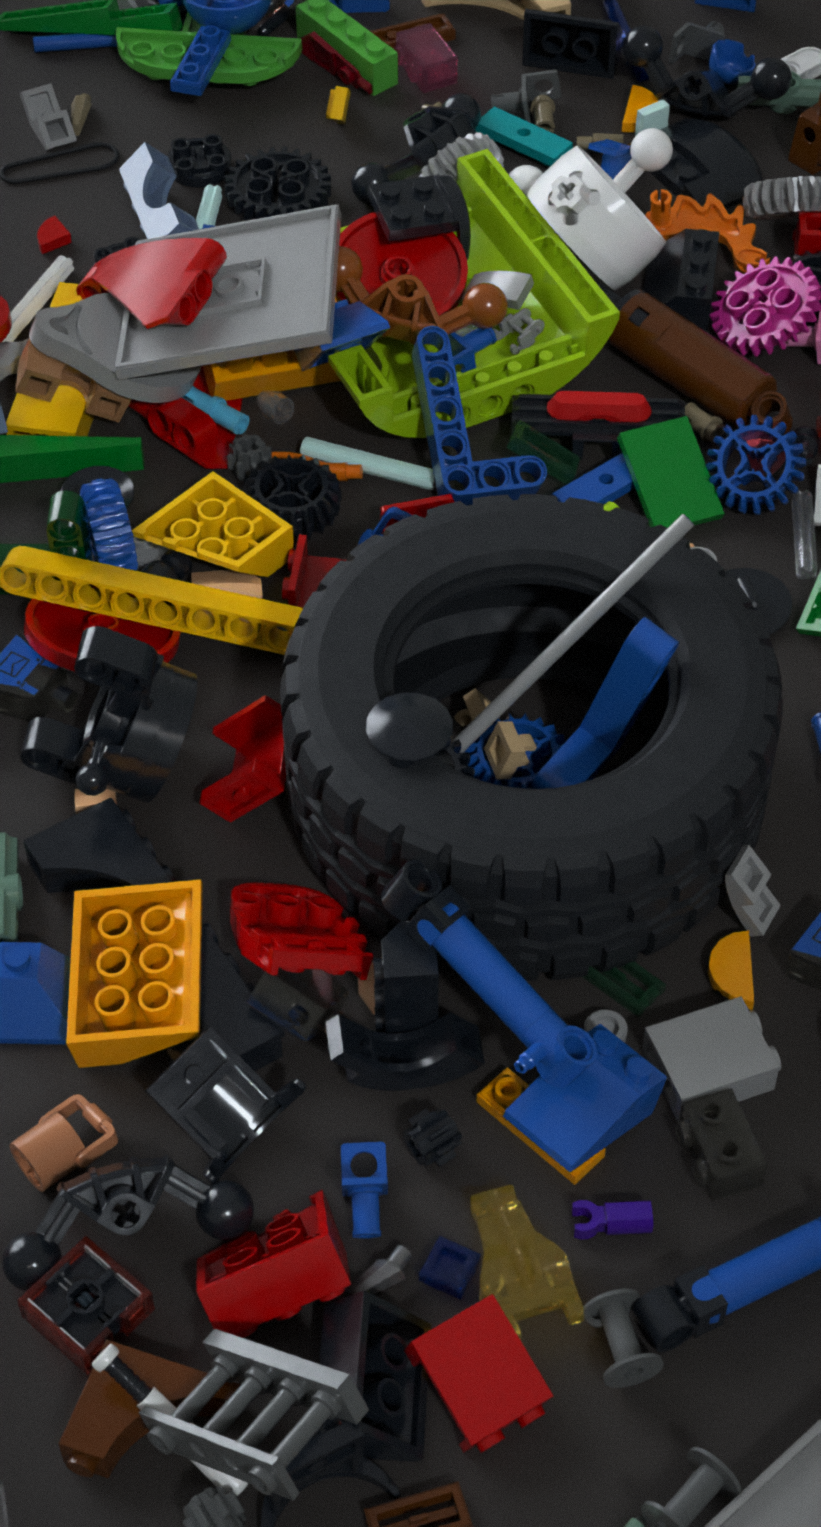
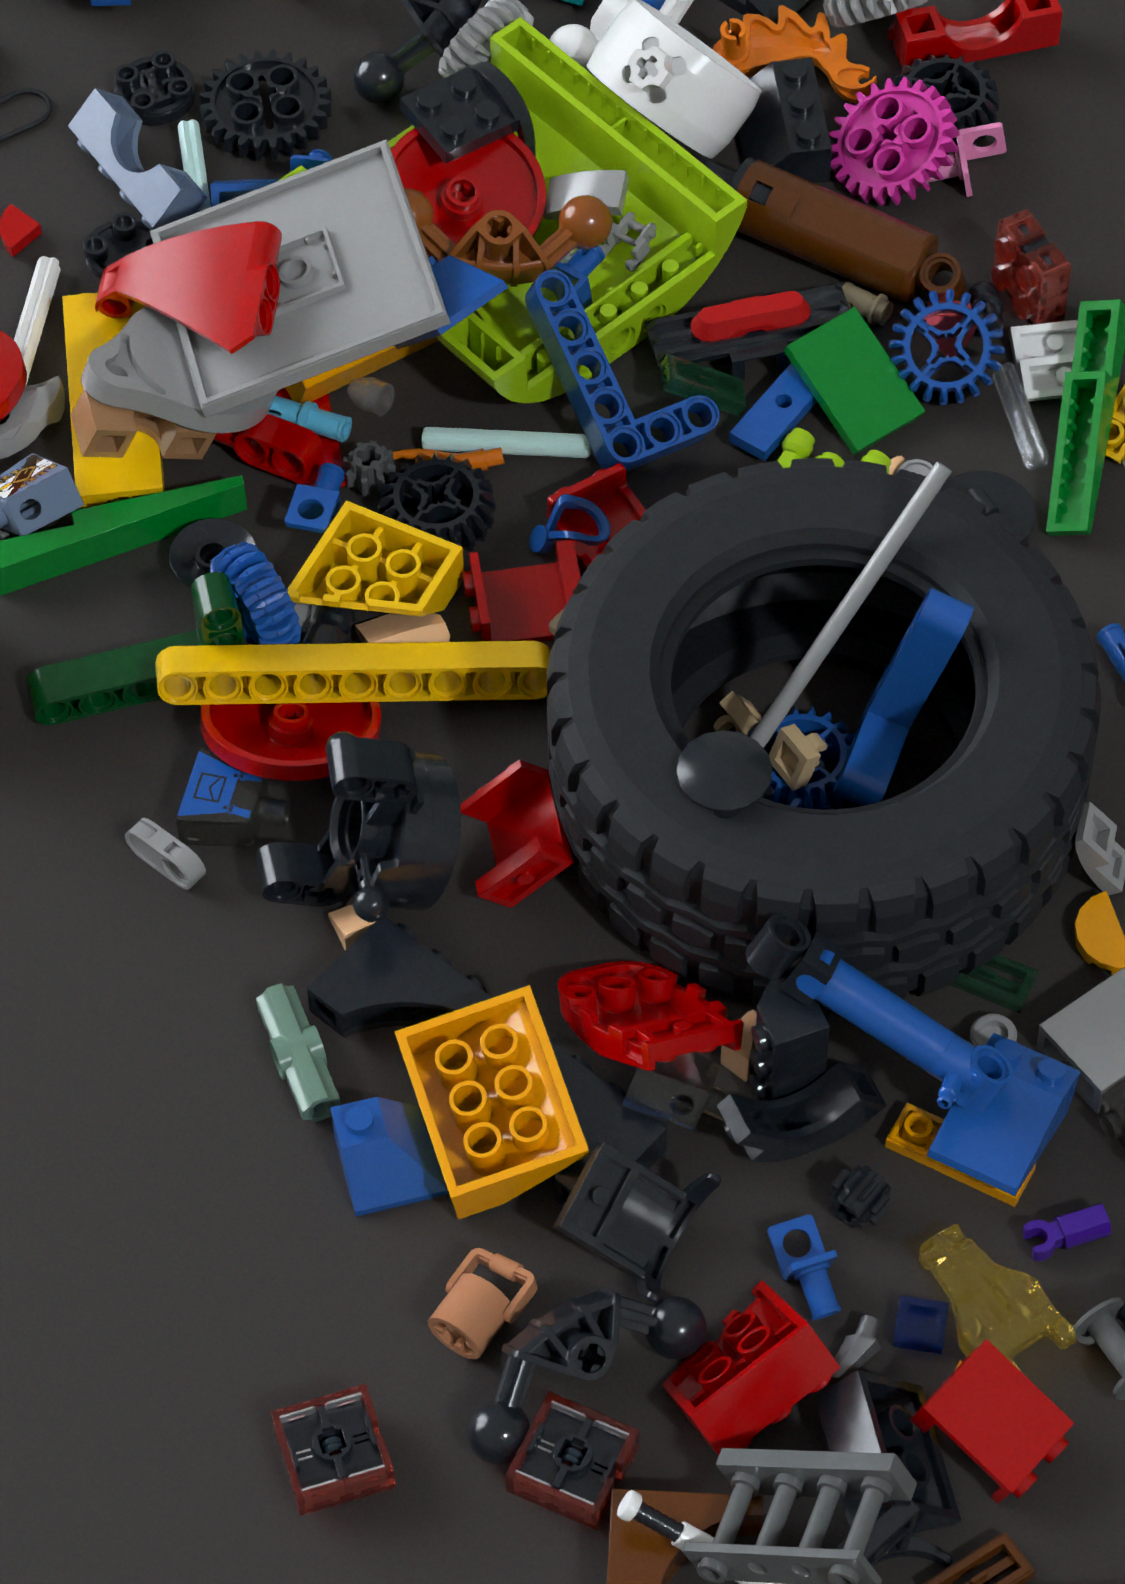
camera: 15 degrees left, 5 degrees up
(192, 468) = (317, 505): none -> blue bracket

